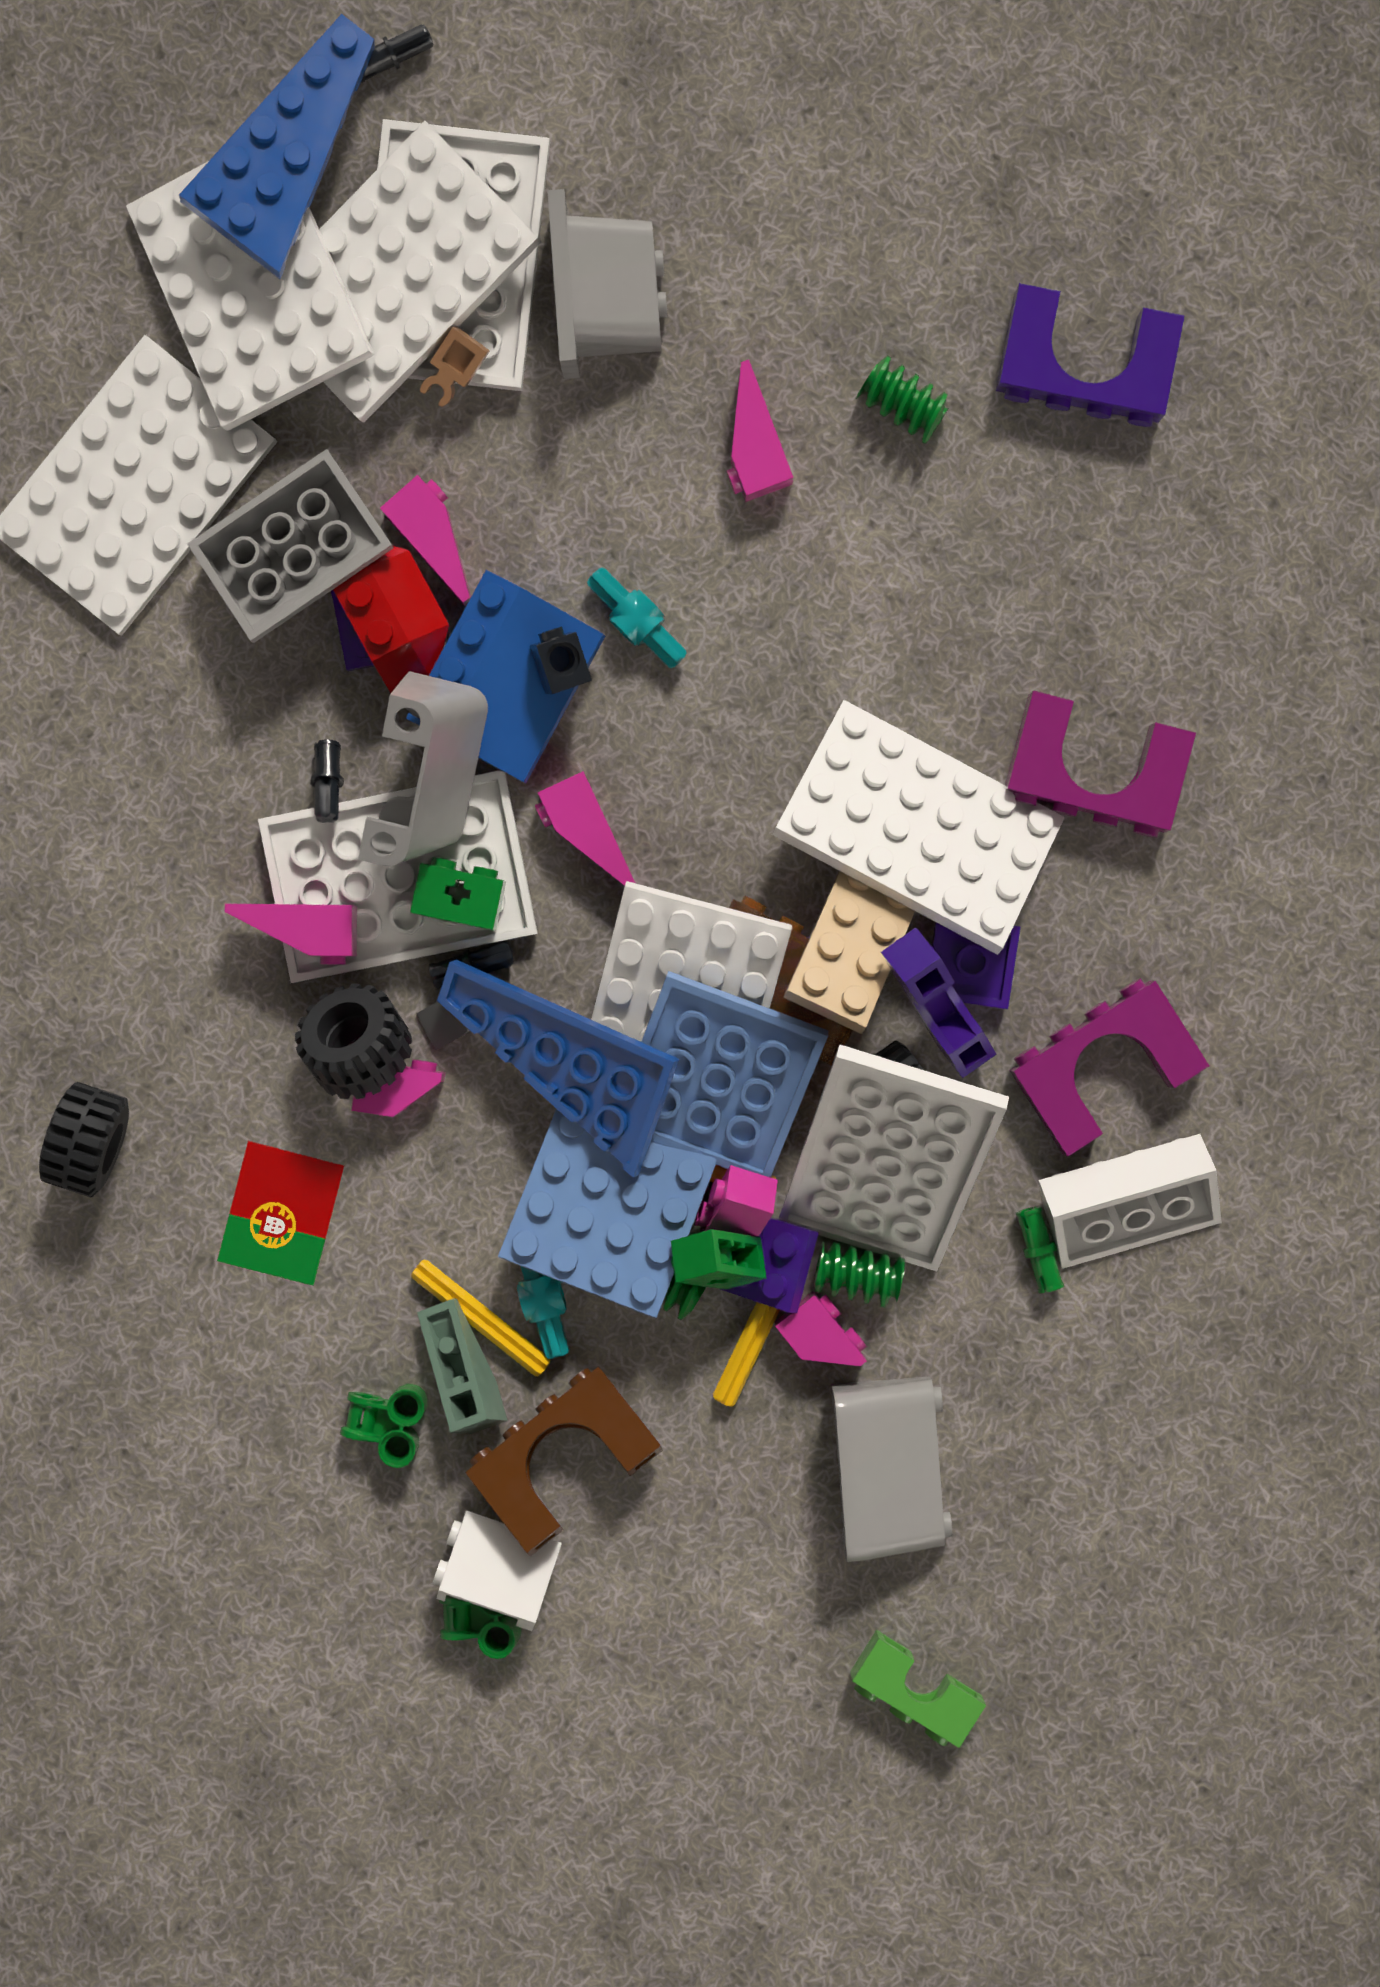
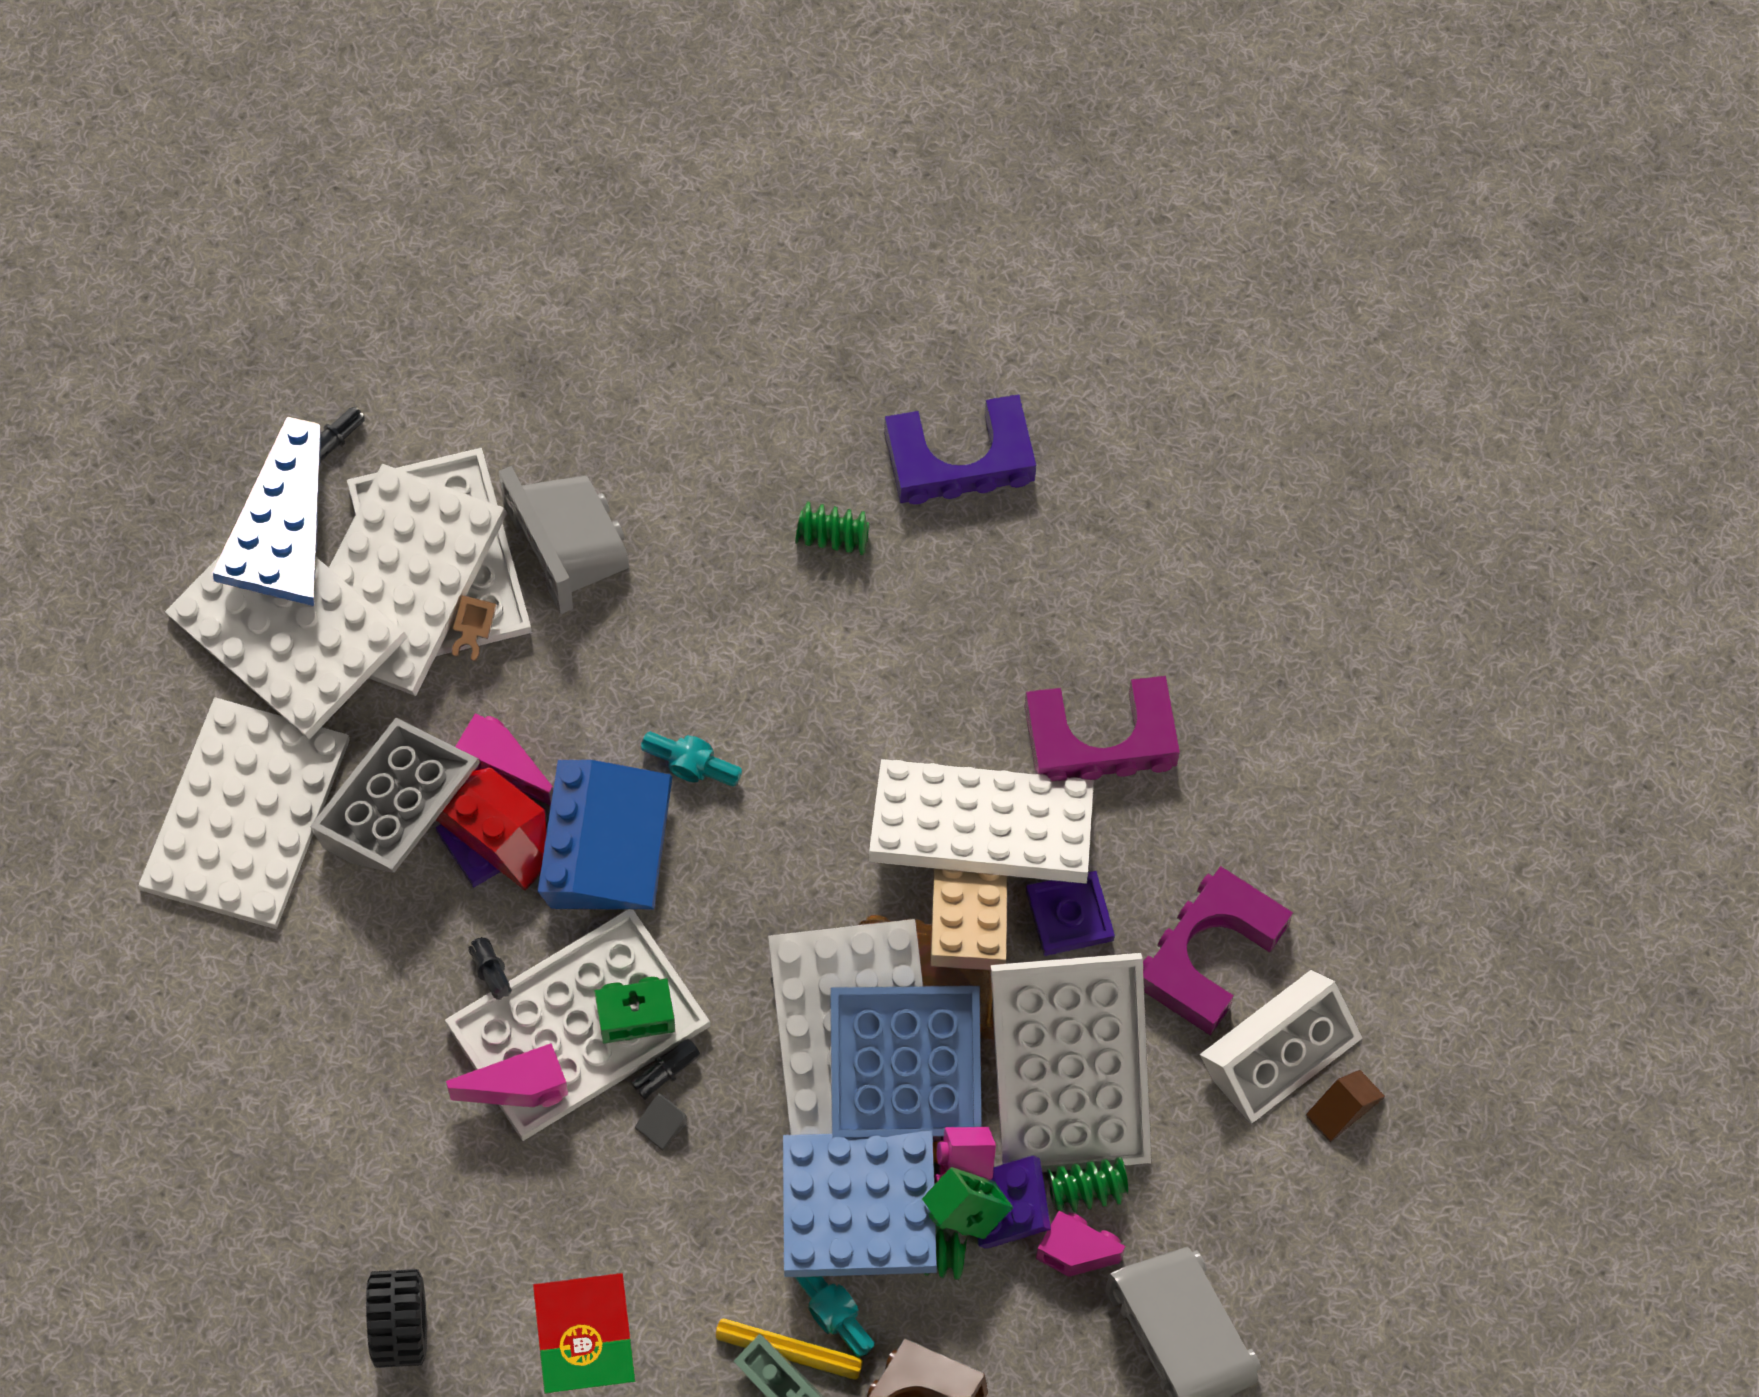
camera: 30 degrees left, 25 degrees down
(338, 1022) = (594, 1153): black tyre -> none
(403, 1092) = (639, 1187): dark pink slope -> none
(452, 736) = (596, 955): light grey windscreen -> none
(576, 670) = (642, 813): black brick -> none
(576, 1064) = (795, 1094): blue wing -> none
(579, 820) = (714, 927): dark pink slope -> none
(745, 1354) = (1023, 1288): yellow axle -> none
(756, 450) = (736, 607): dark pink slope -> none
(937, 1003) = (1031, 910): dark purple arch -> none
(1039, 1249) = (1226, 1111): green pin -> none
(1169, 1290) = (1344, 1104): none -> reddish brown slope

